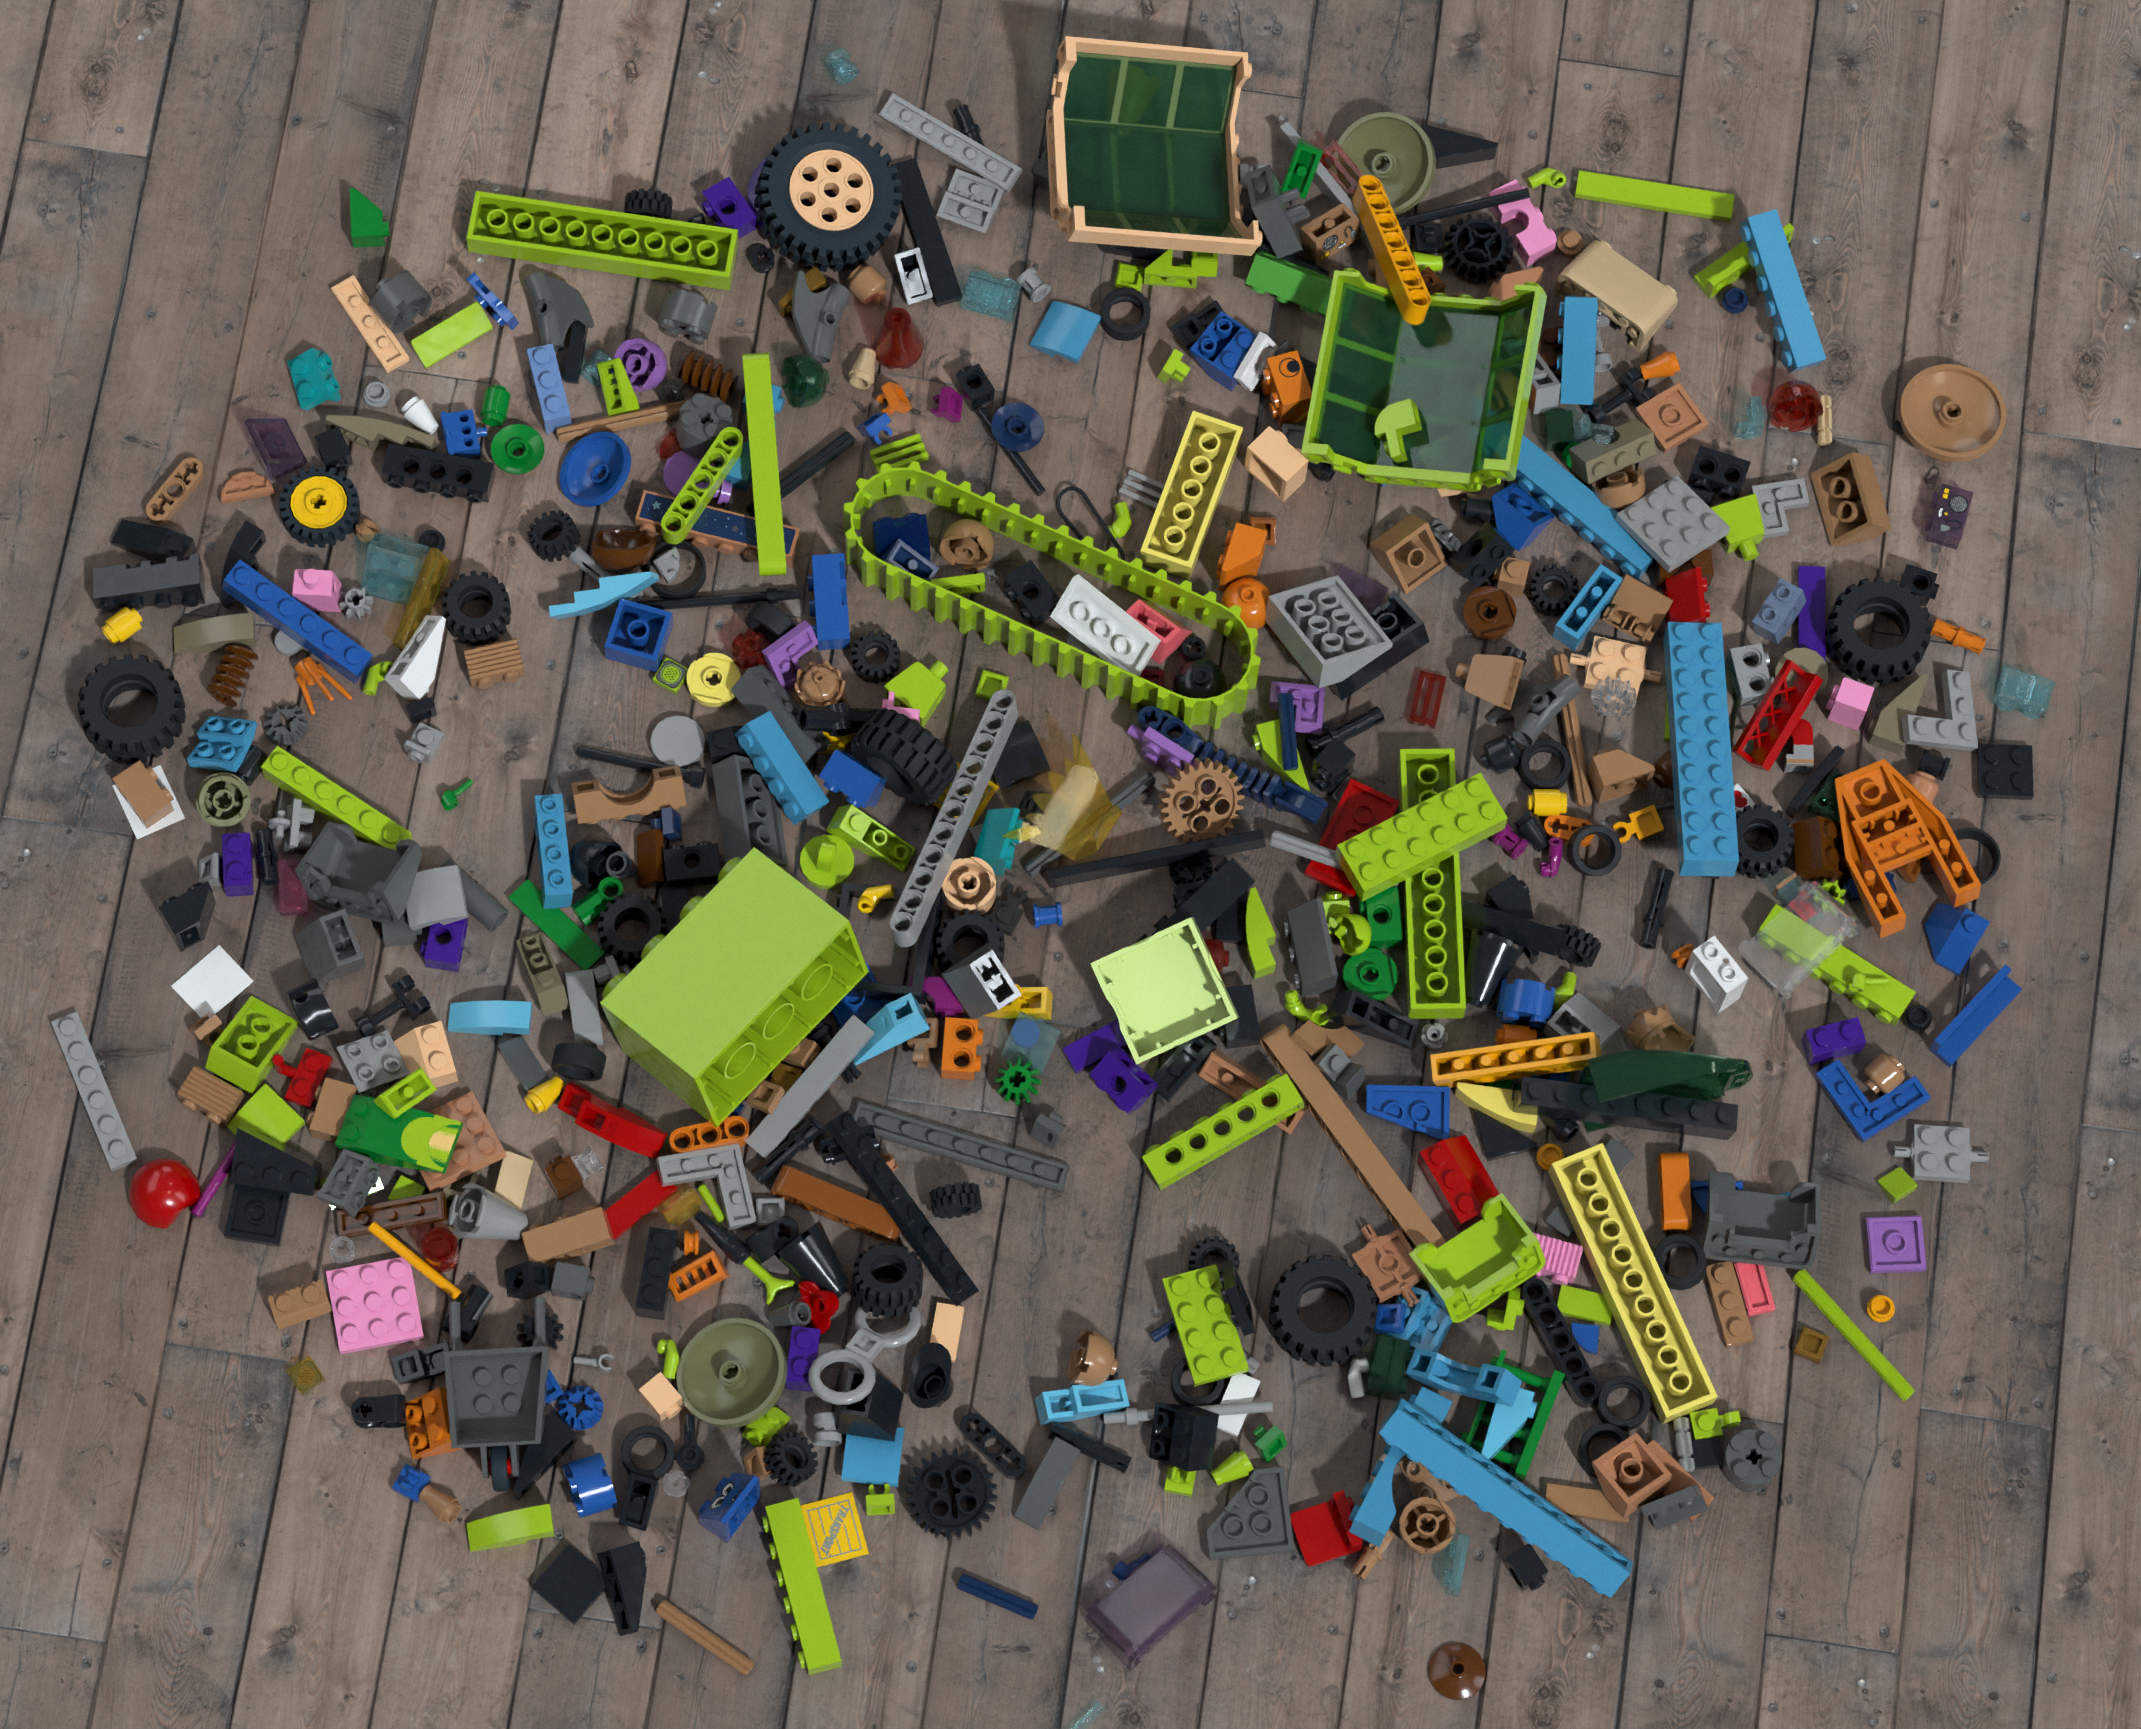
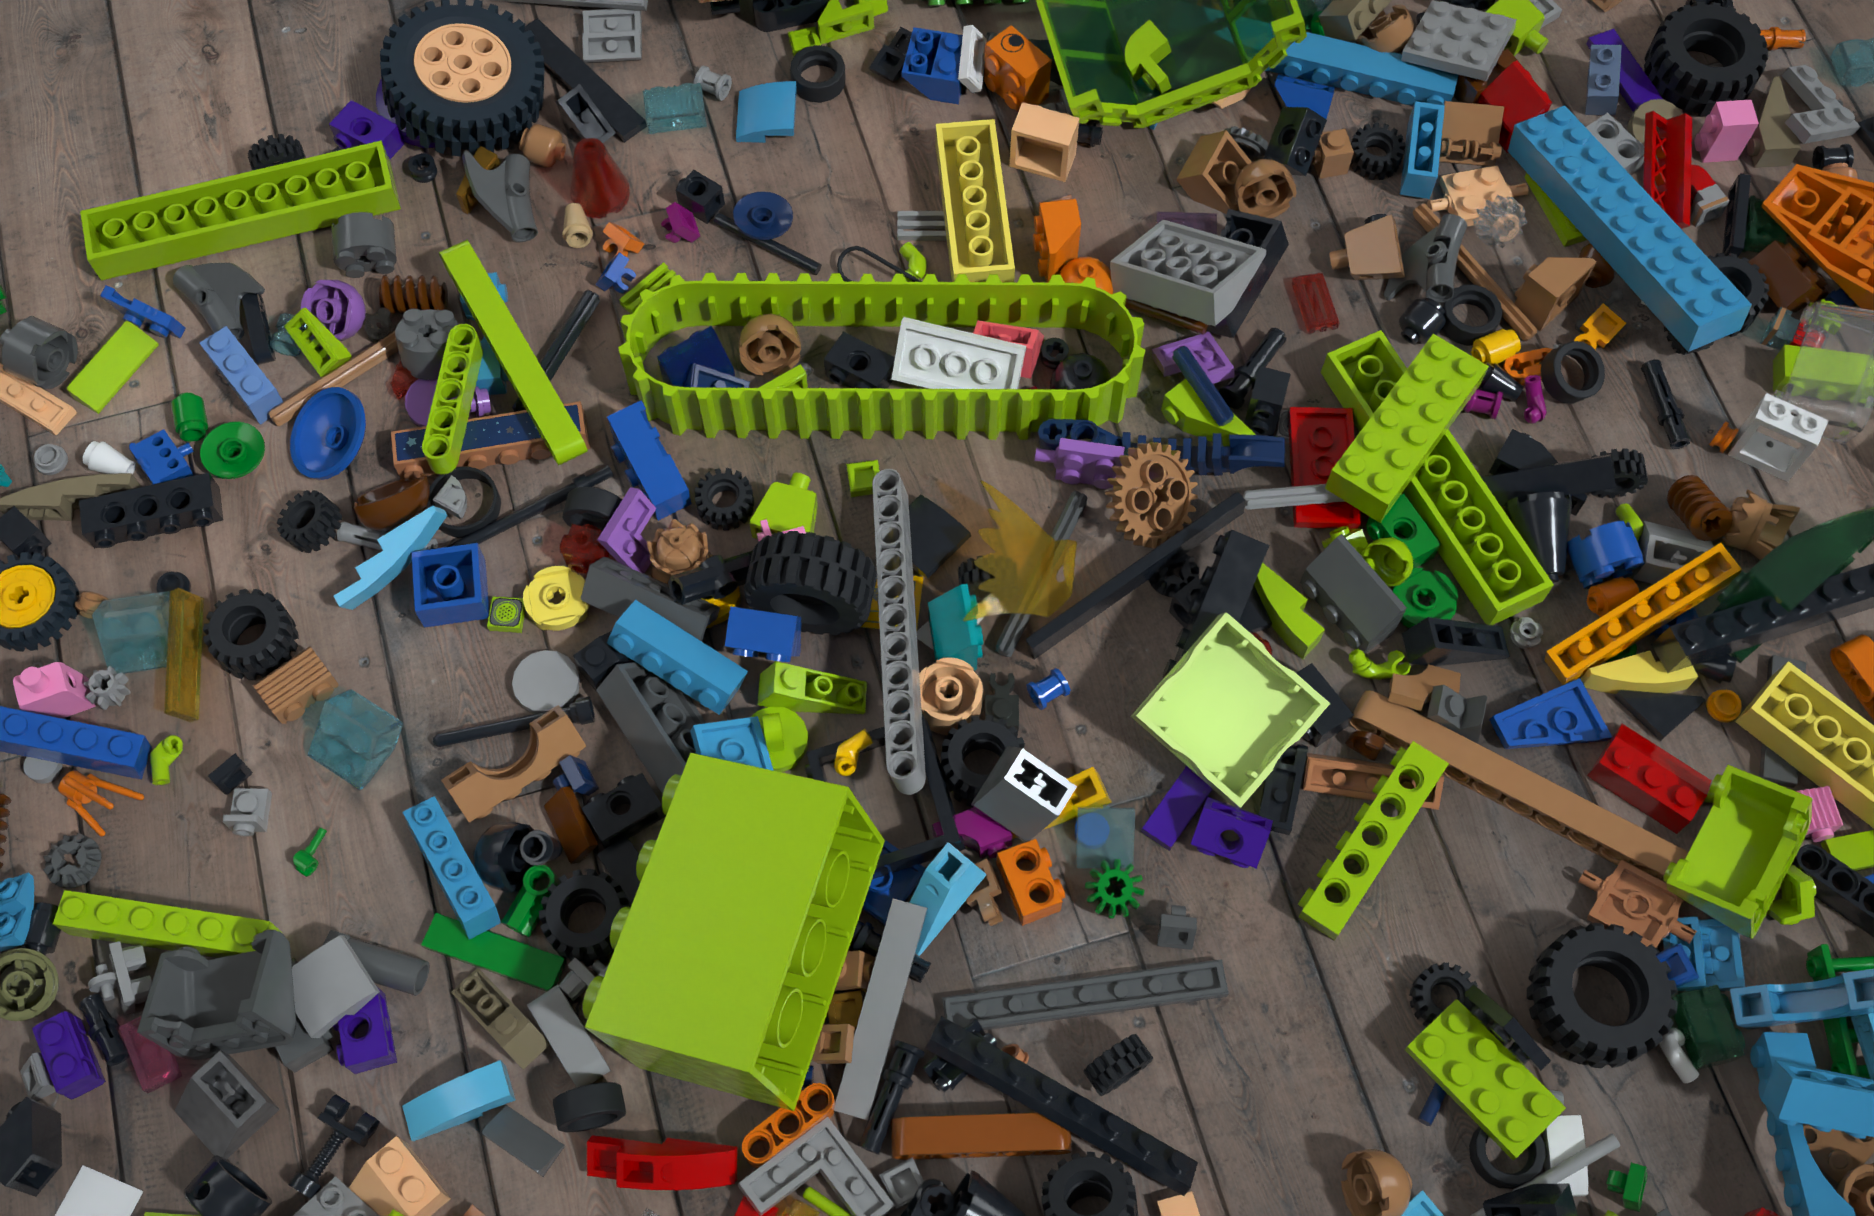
camera: 20 degrees left, 5 degrees down
(418, 661) = (204, 722): white slope -> none
(521, 722) = (354, 737): none -> clear light blue slope
(543, 1095) = (564, 1168): yellow cone -> none
(793, 853) = (733, 741): none -> dark azure plate
(805, 380) = (518, 258): clear green cylinder -> none
(1174, 368) = (892, 101): lime tile -> none
(1262, 1063) = (1366, 743): none -> reddish brown tile
(1436, 584) = (1264, 188): none -> medium nougat cylinder
(1477, 508) = (1260, 107): black brick -> none
(1495, 600) = (1320, 210): reddish brown plate -> none
(1621, 1001) = (1699, 508): none -> reddish brown piece

